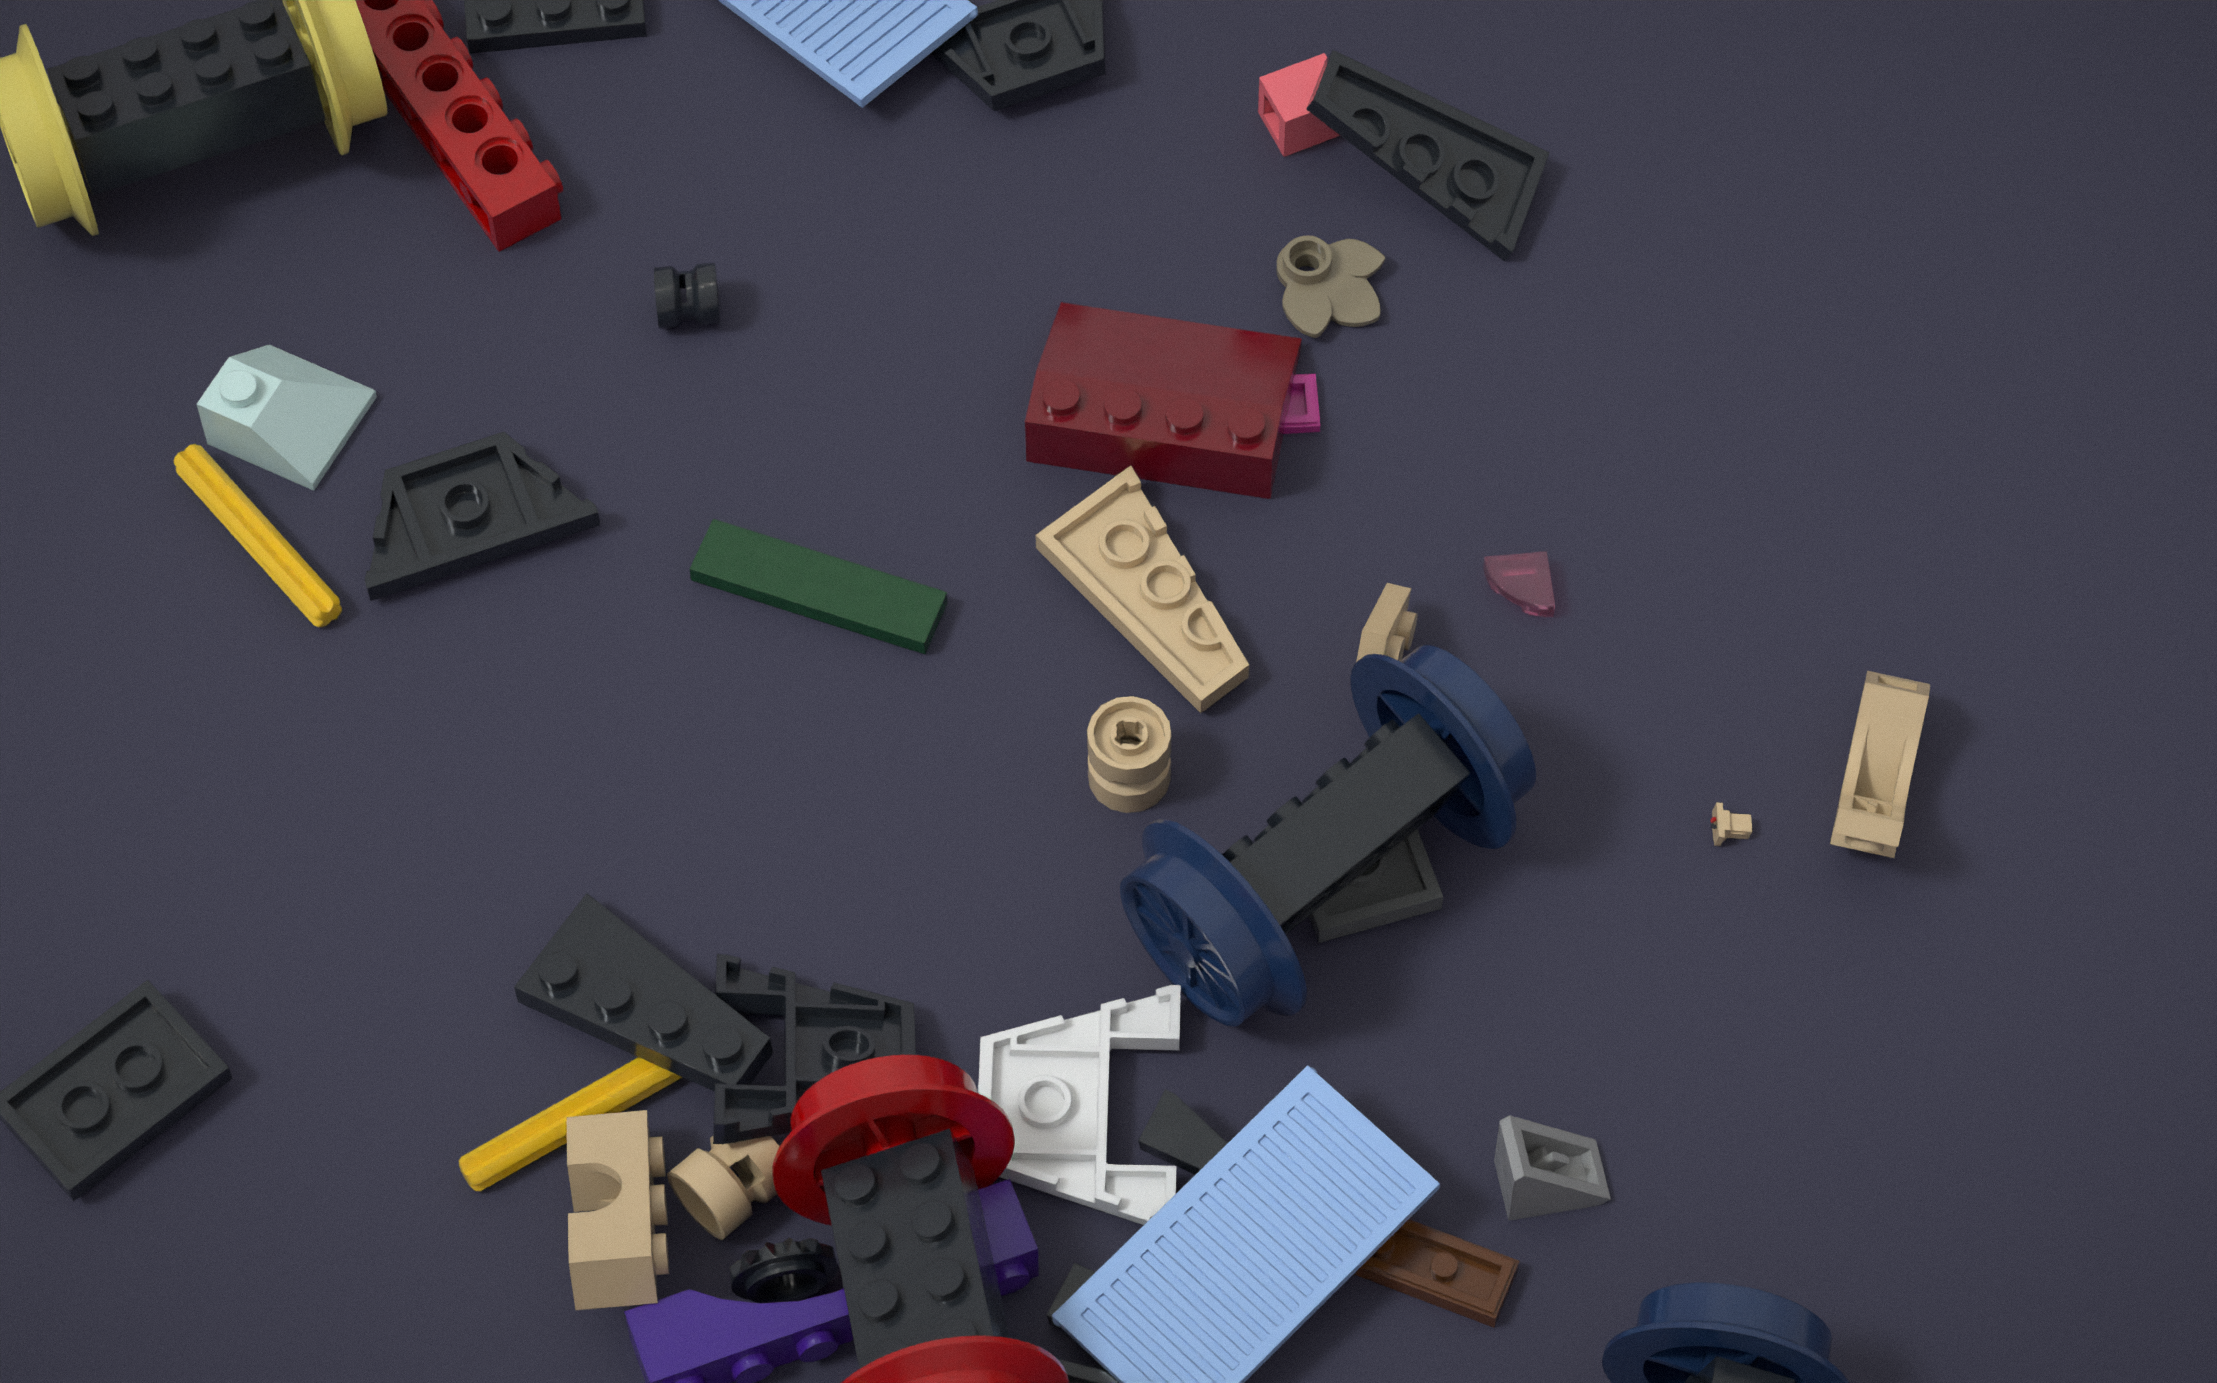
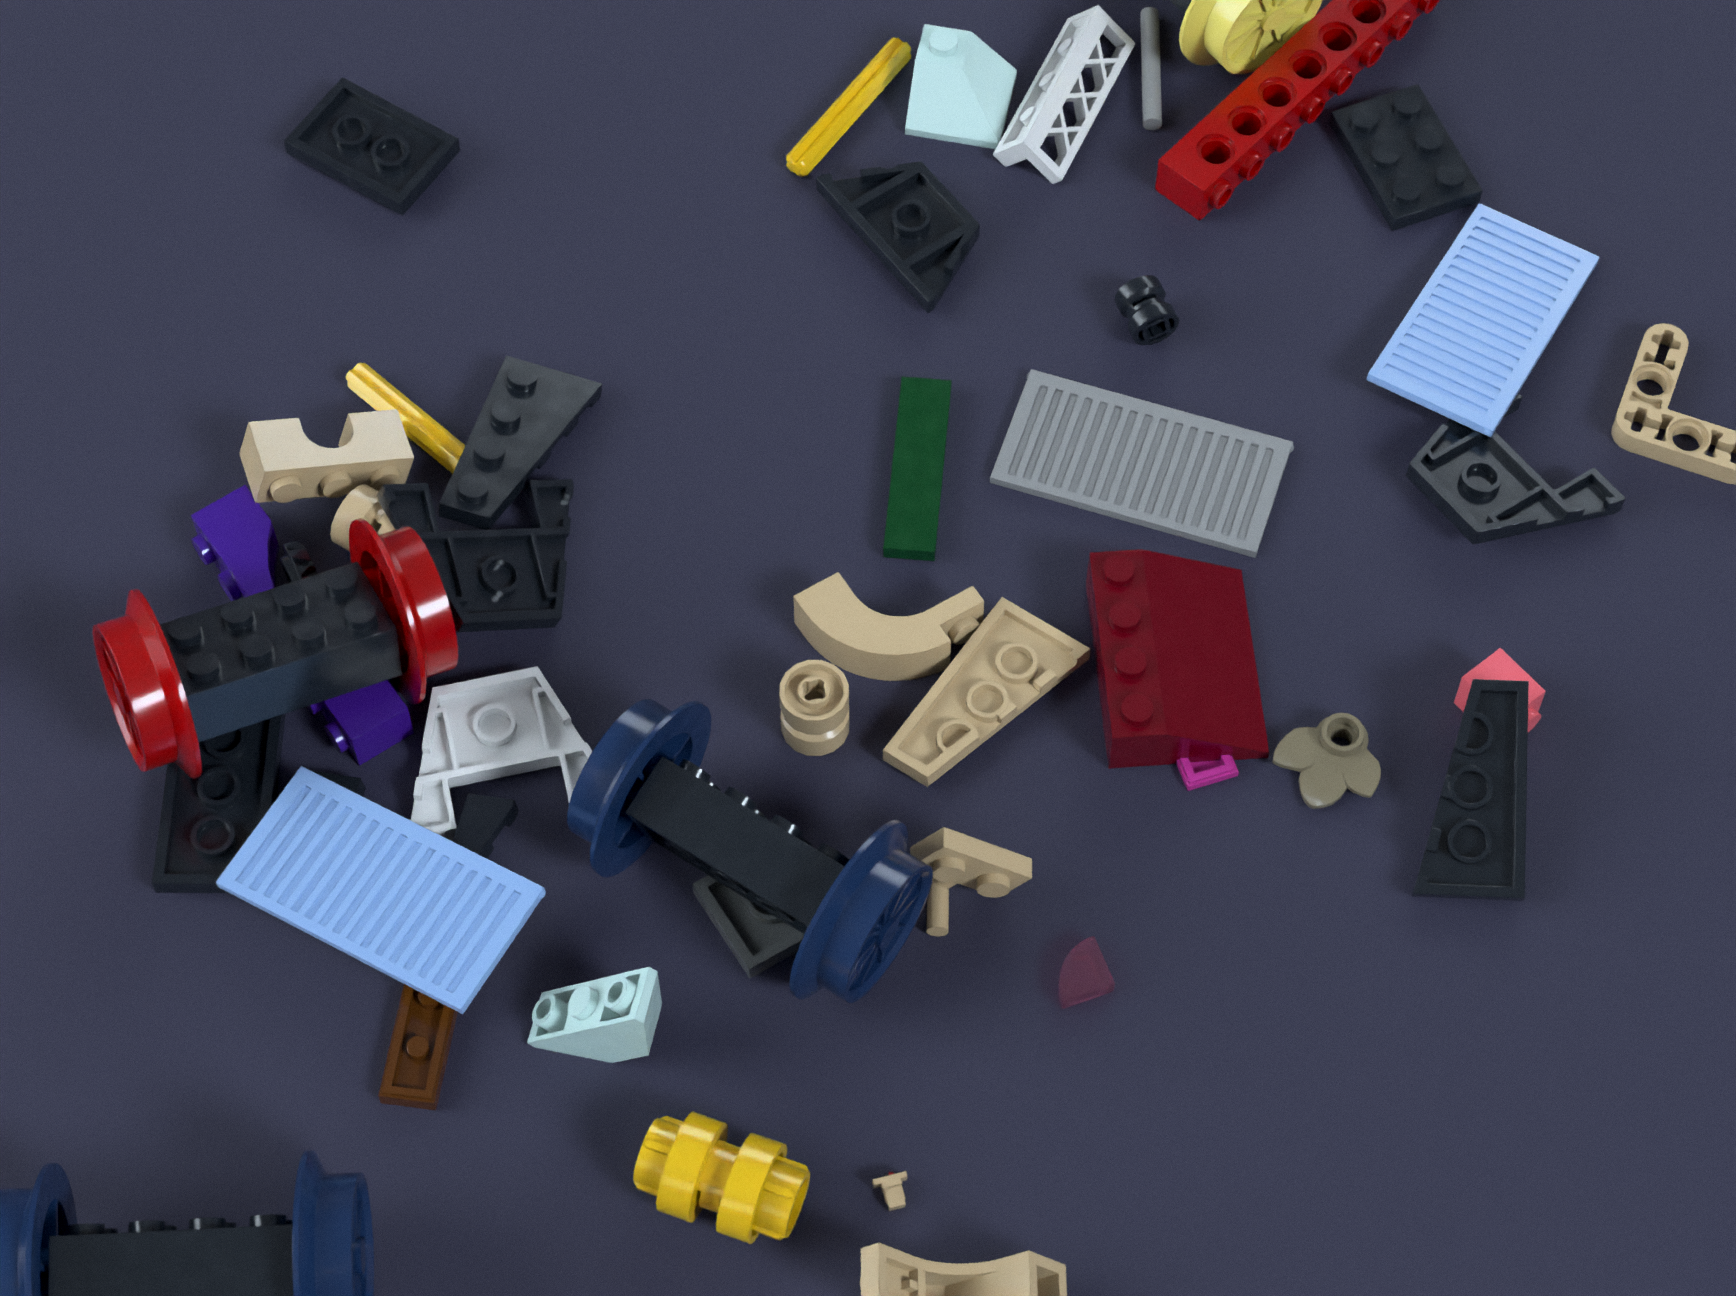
camera: 75 degrees right, 0 degrees up
(322, 205) = (1151, 68): none -> light grey bar
(330, 301) = (1060, 74): none -> white fence
(881, 364) = (1142, 463): none -> light grey window
(1043, 694) = (879, 643): none -> tan arch
(1470, 1051) = (600, 1018): none -> light aqua slope
(1547, 1169) = (517, 1103): light grey slope -> none
(1687, 985) = (696, 1169): none -> yellow piece

